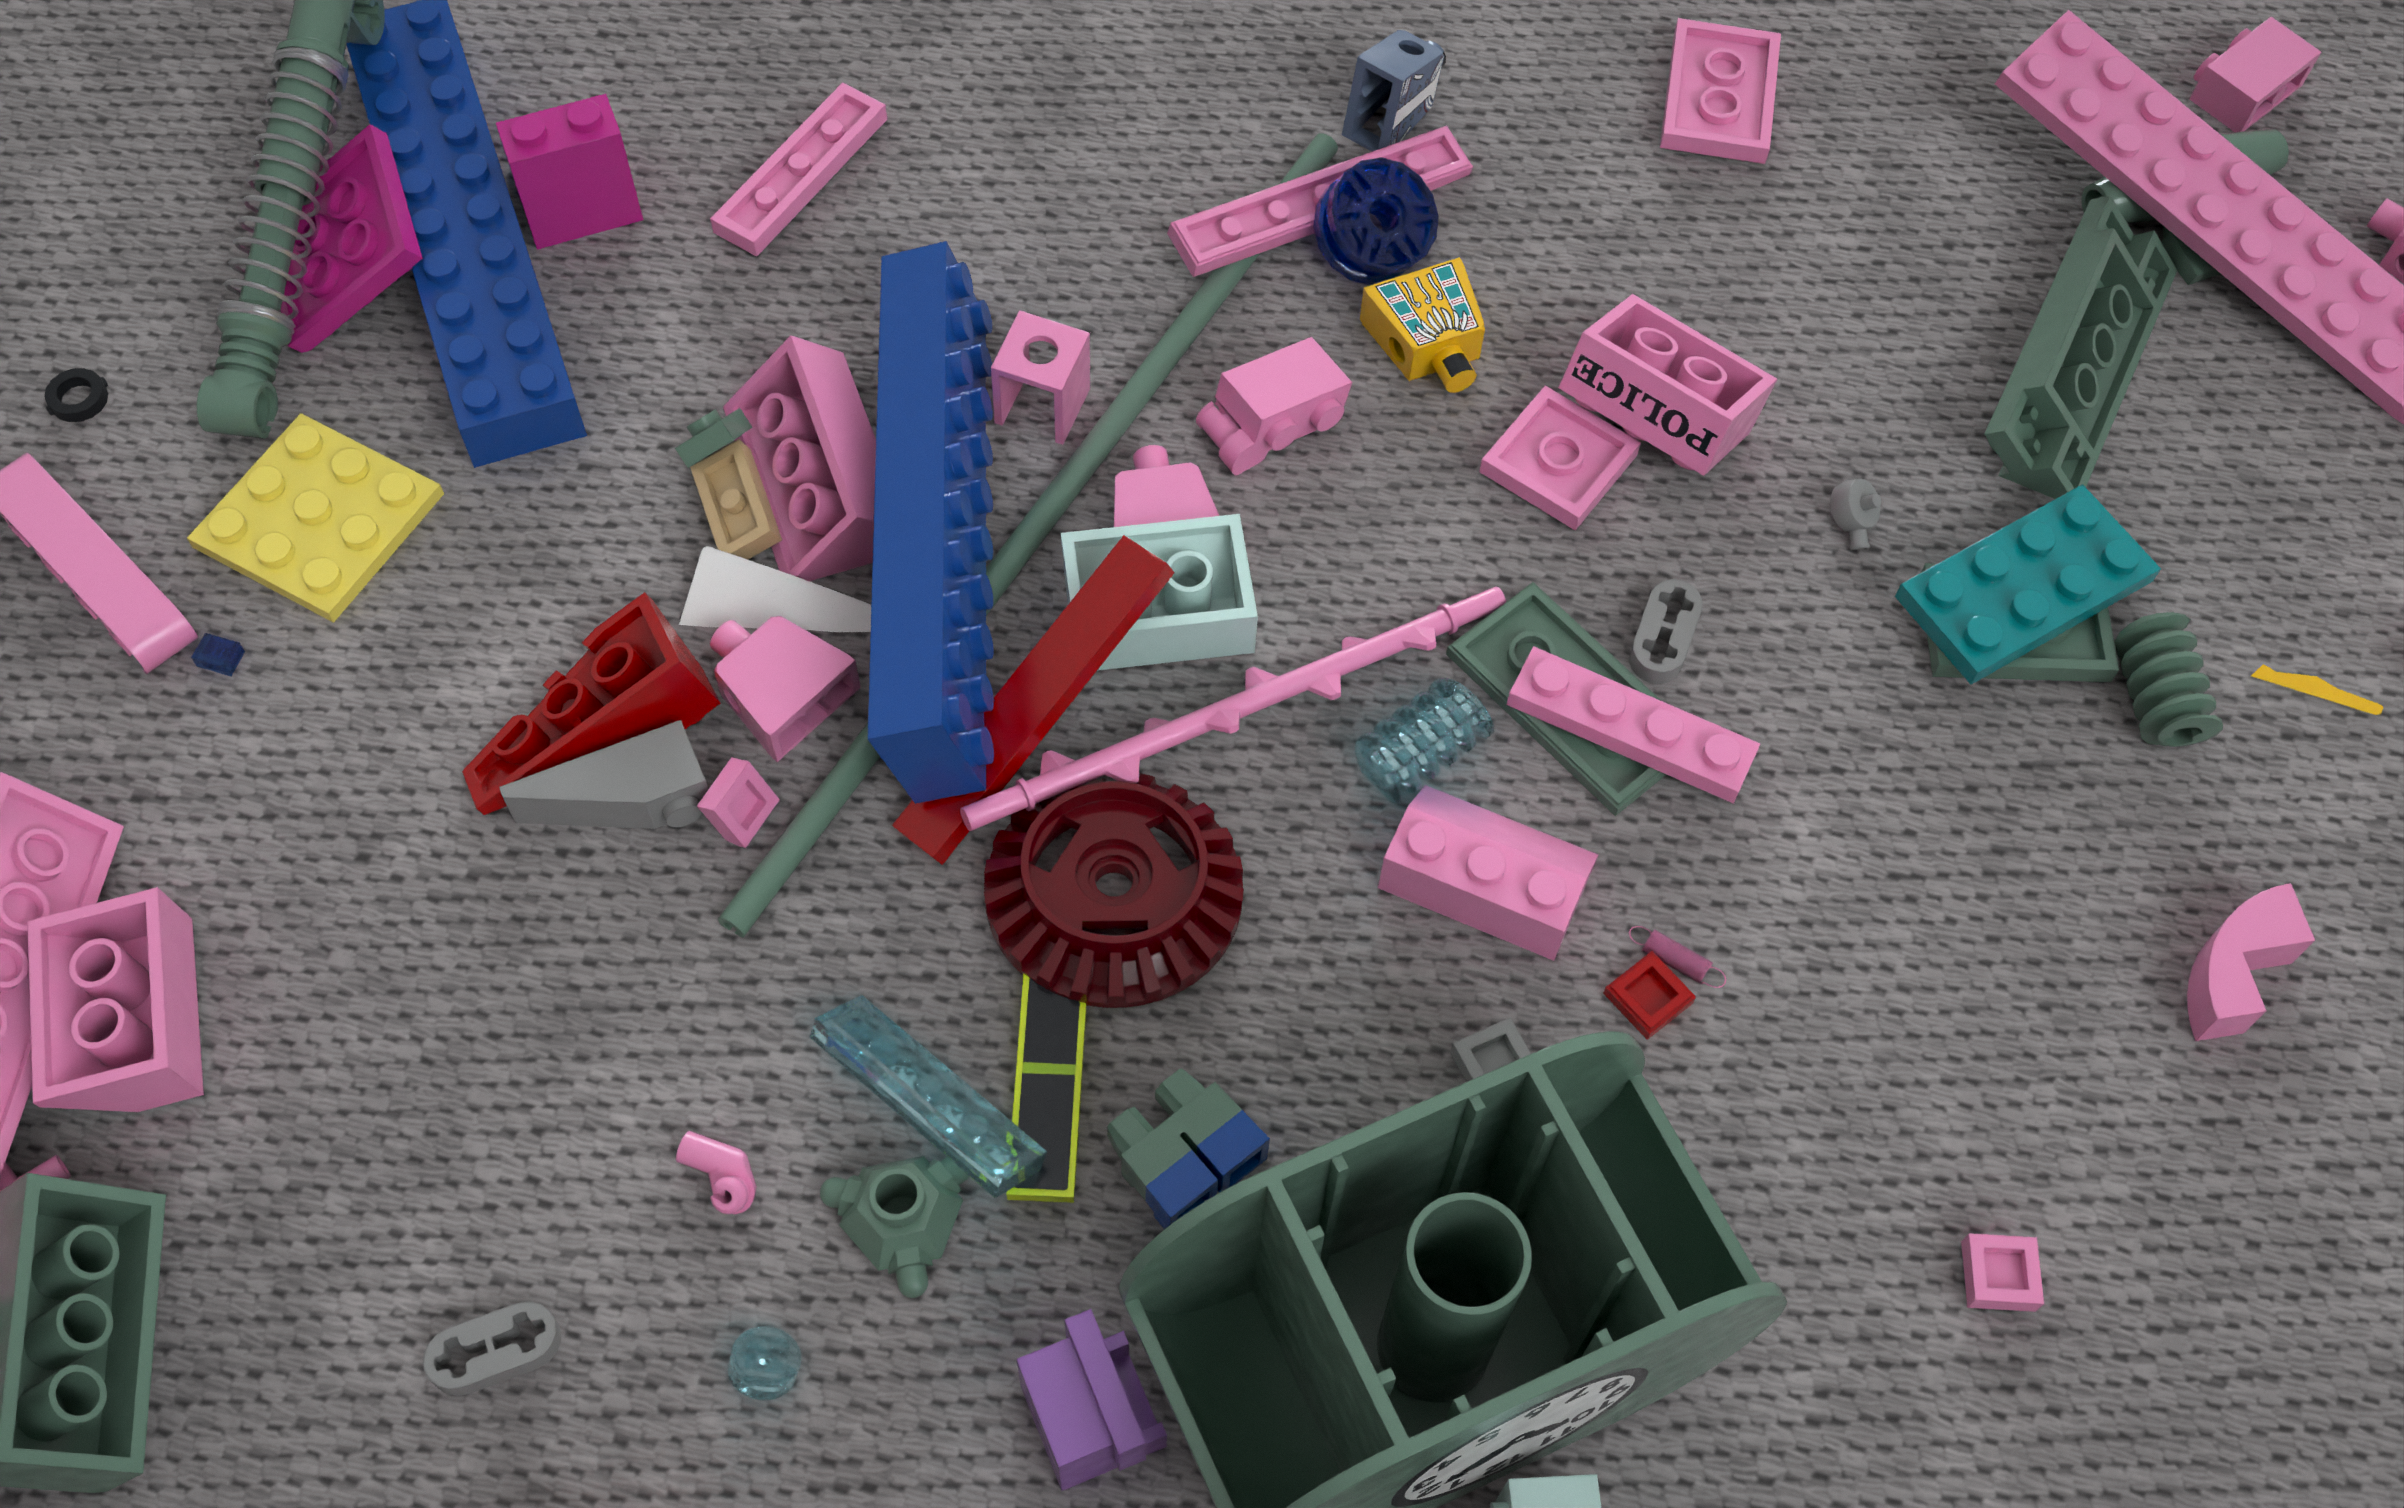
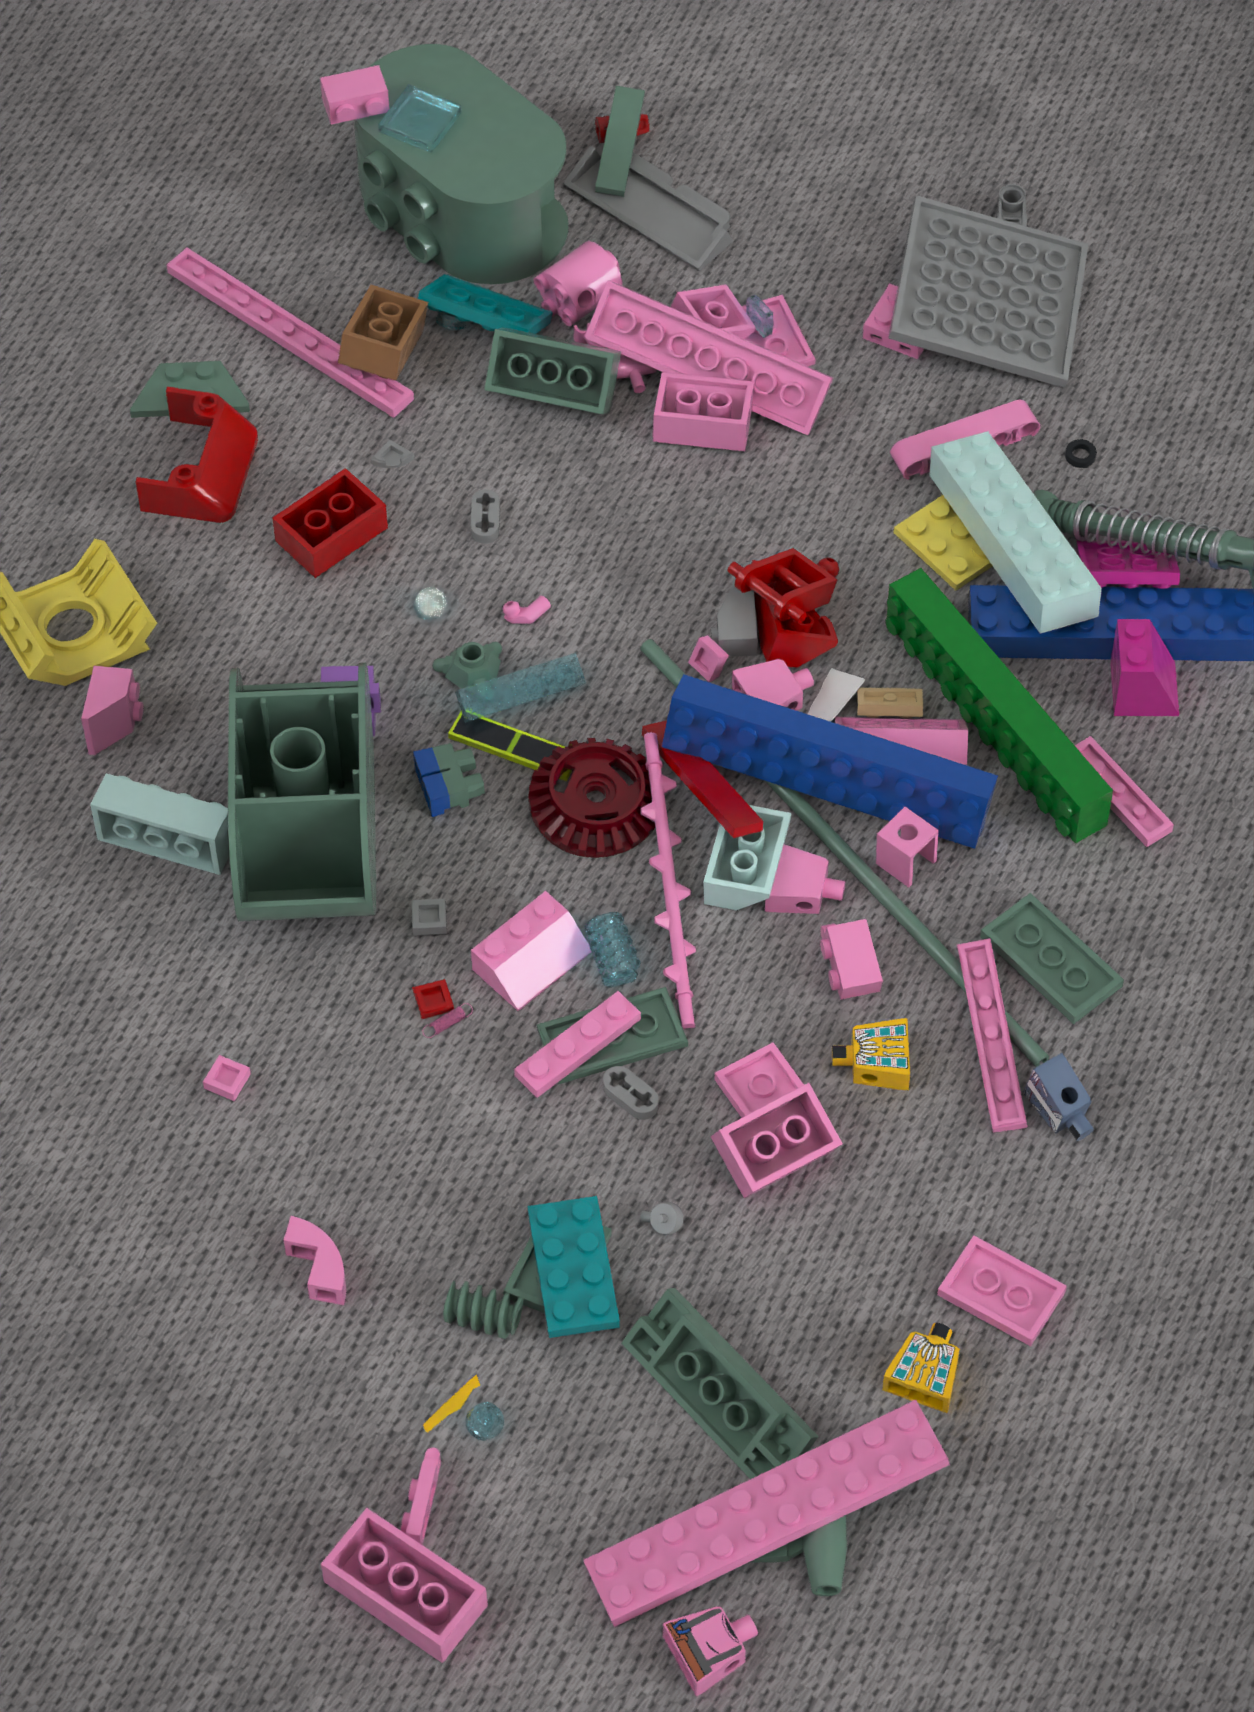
camera: 115 degrees right, 5 degrees down
(218, 654) = (890, 482): clear blue piece -> none
(324, 384) = (1015, 532): none -> light aqua brick
(502, 700) = (811, 582): none -> red piece
(694, 343) = (998, 706): none -> green brick
(711, 434) = (933, 698): sand green plate -> none
(1145, 172) = (1052, 958): none -> sand green plate
(1397, 200) = (943, 1032): clear blue wheel -> none
(1894, 133) = (924, 1368): none -> torso
(2253, 74) = (892, 1614): bright pink brick -> none
(2326, 625) = (484, 1421): none -> clear light blue tile

